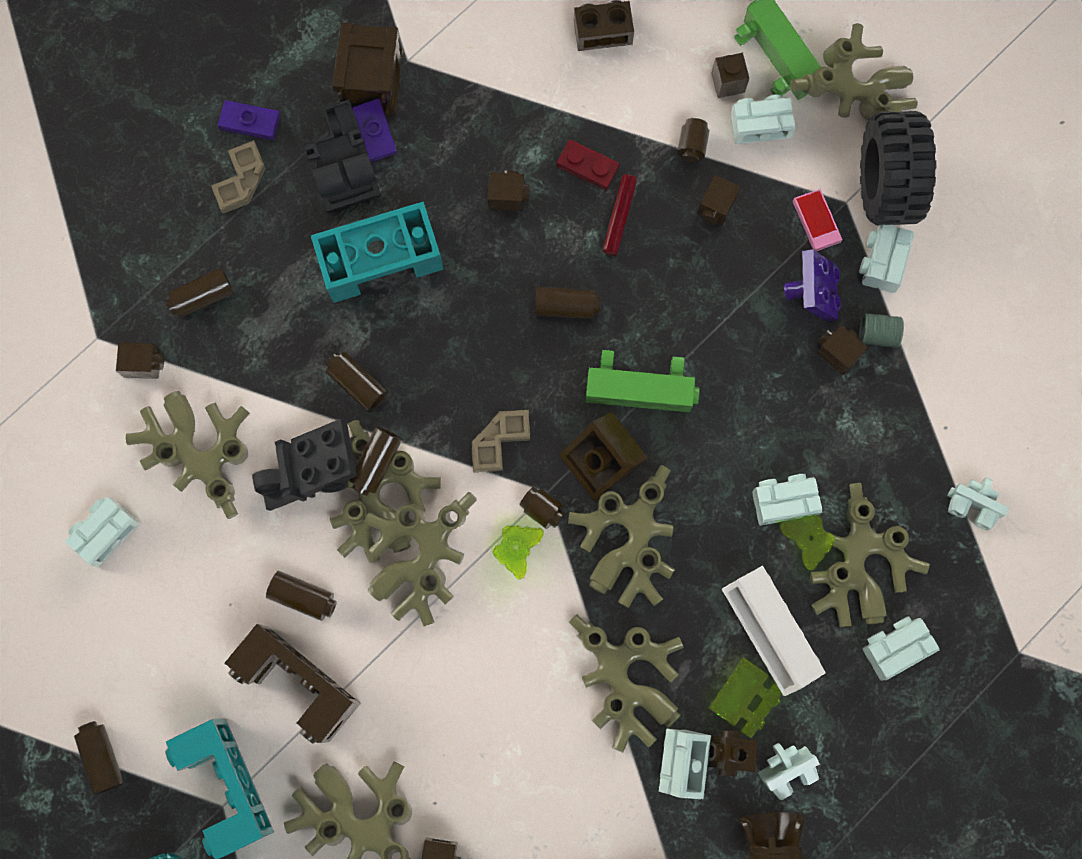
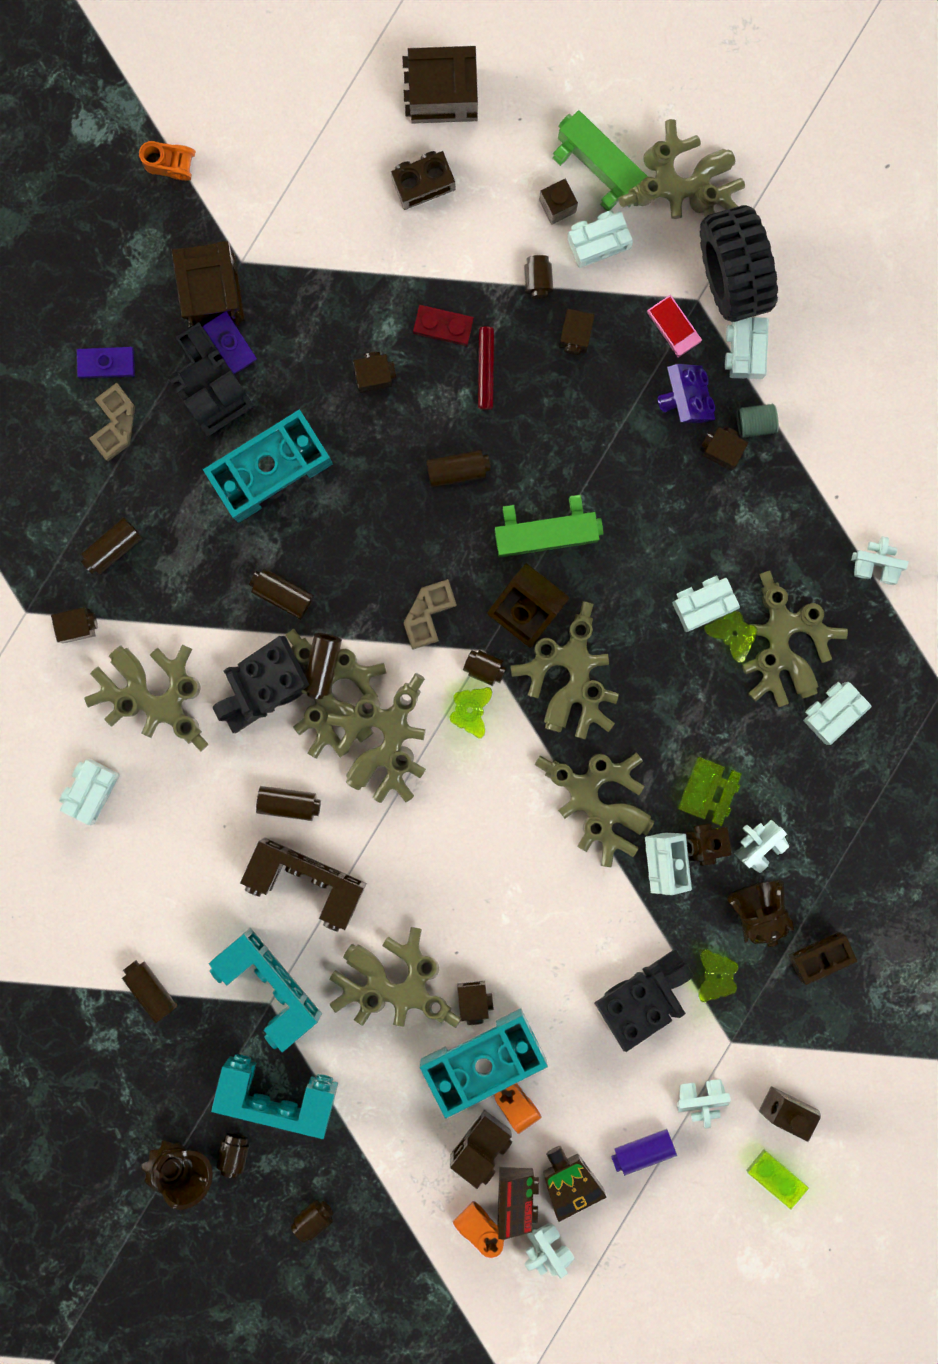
camera: 15 degrees left, 10 degrees up
(773, 631) = (720, 726): white brick -> none

